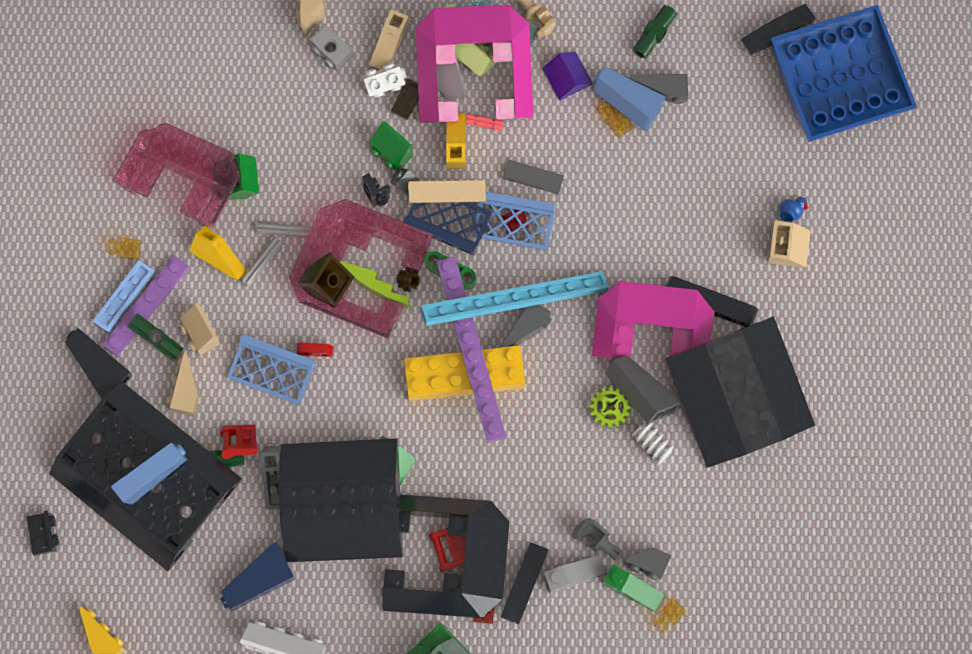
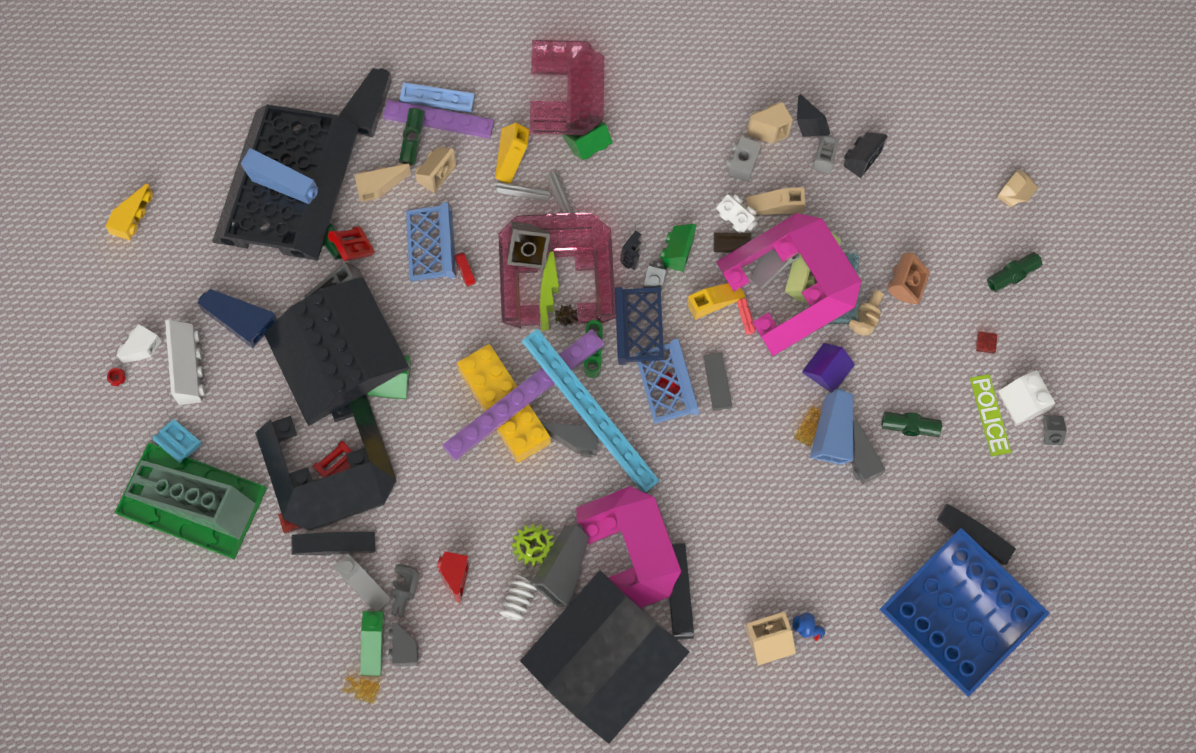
camera: 60 degrees right, 5 degrees down
(42, 533) = (202, 129): black bracket -> none
(127, 248) = (480, 81): clear yellow plate -> none
(447, 191) = (661, 310): tan slope -> none
(607, 487) = (454, 572): none -> red slope

